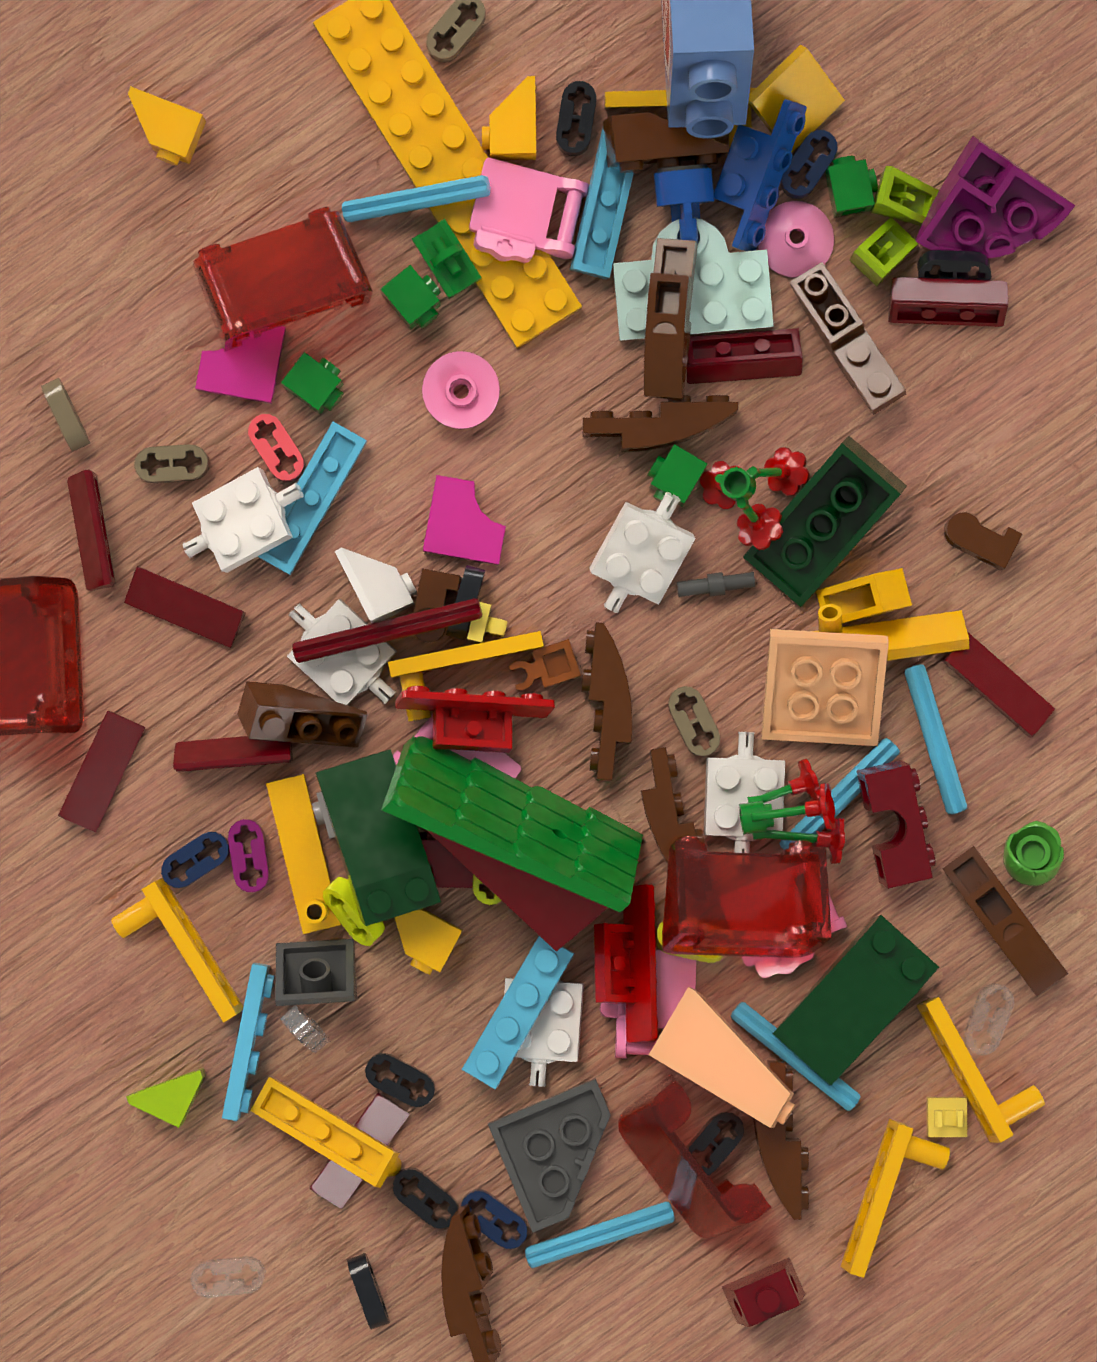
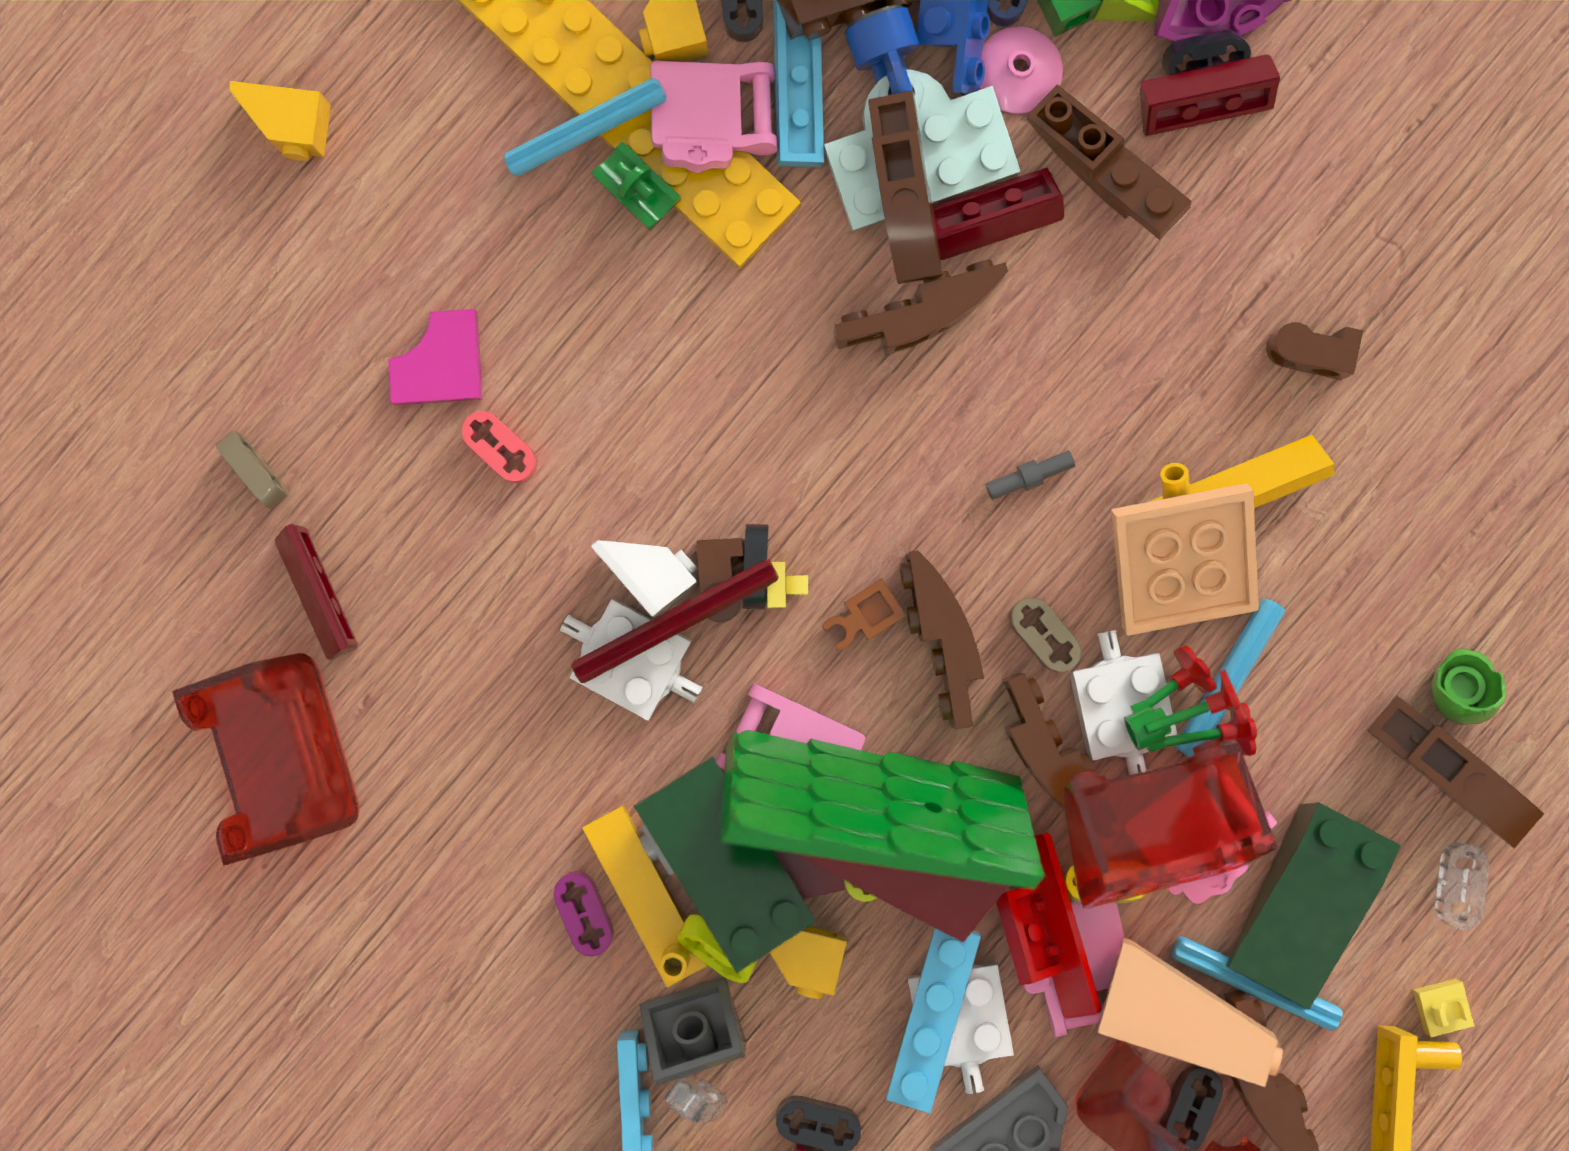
camera: 10 degrees left, 0 degrees up
(101, 771) = (393, 860): dark red slope -> none
(163, 904) = (502, 995): yellow piece -> none
(171, 454) = (383, 484): dark tan beam -> none
(184, 607) = (440, 651): dark red slope -> none
(190, 851) = (516, 926): dark blue beam -> none
(229, 753) = (536, 802): dark red slope -> none
(242, 520) = (480, 537): white plate -> none
(281, 277) = (454, 252): clear red windscreen -> none
(297, 716) = (595, 744): reddish brown slope -> none
(314, 383) = (523, 363): green brick -> none
(320, 487) = (552, 493): medium azure plate -> none
(411, 668) = (713, 657): yellow piece -> none
(413, 297) = (609, 239): green brick -> none
(456, 370) = (685, 307): bright pink dish -> none
(459, 526) = (726, 482): dark pink tile -> none
(473, 720) = (797, 698): red bracket -> none
(642, 552) = (940, 460): white plate -> none
(676, 474) = (955, 365): green brick -> none
(730, 484) = (1013, 360): red plant -> none
(827, 520) = (1135, 373): dark green slope -> none
(868, 595) = (1204, 444): yellow slope -> none
(883, 251) = (1120, 59): lime slope -> none
(906, 855) = (1324, 724): dark red arch -> none
(935, 739) = (1320, 586): medium azure axle -> none
(992, 1117) = (1496, 995): yellow piece -> none
(1000, 686) = (1378, 511): dark red slope -> none

